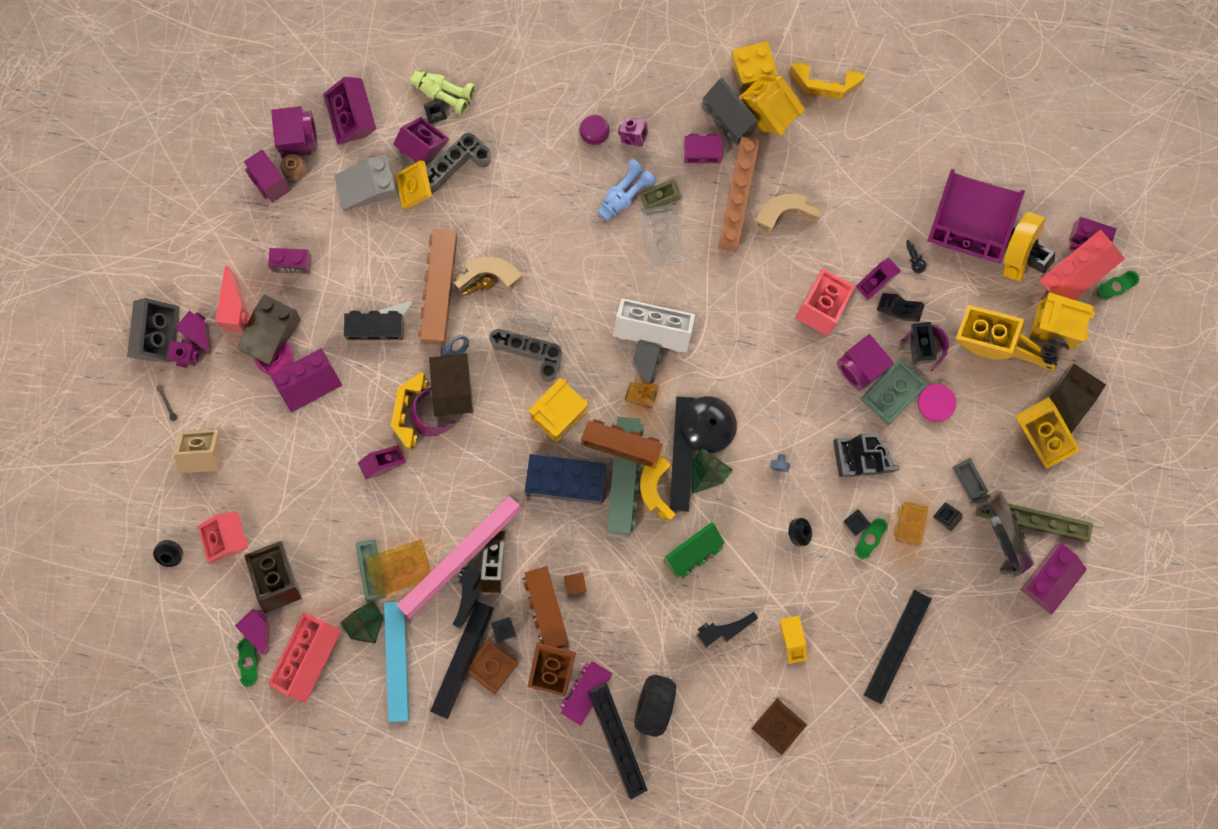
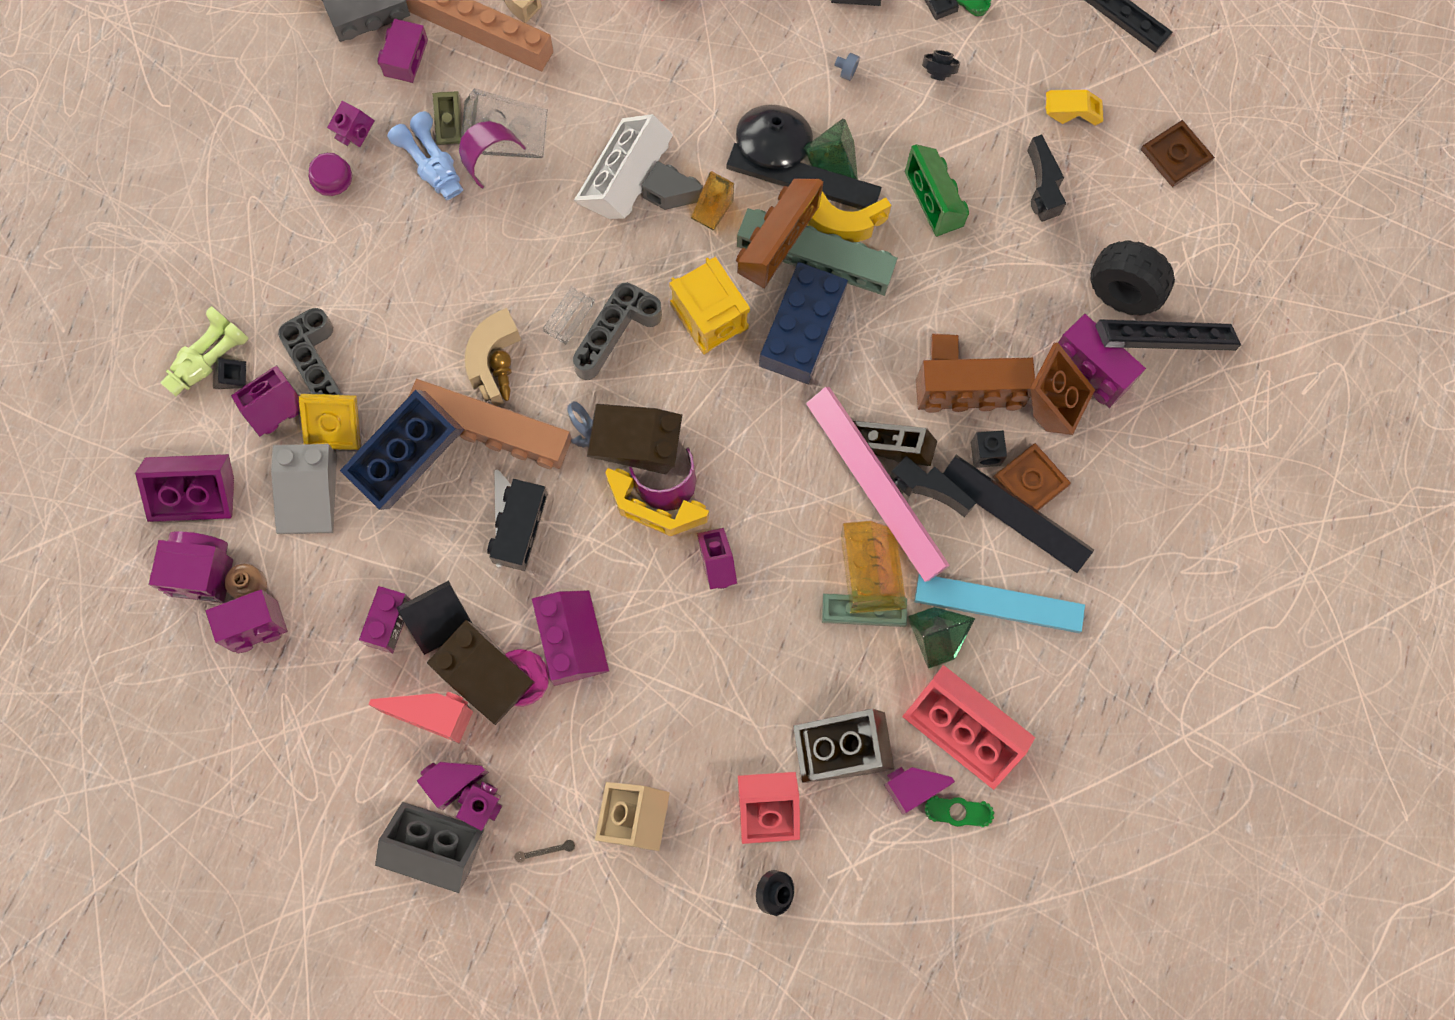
camera: 75 degrees left, 5 degrees down
(297, 291) = (434, 616): none -> black tile
(401, 236) = (402, 449): none -> dark blue brick
(641, 225) = (478, 139): none -> magenta piece

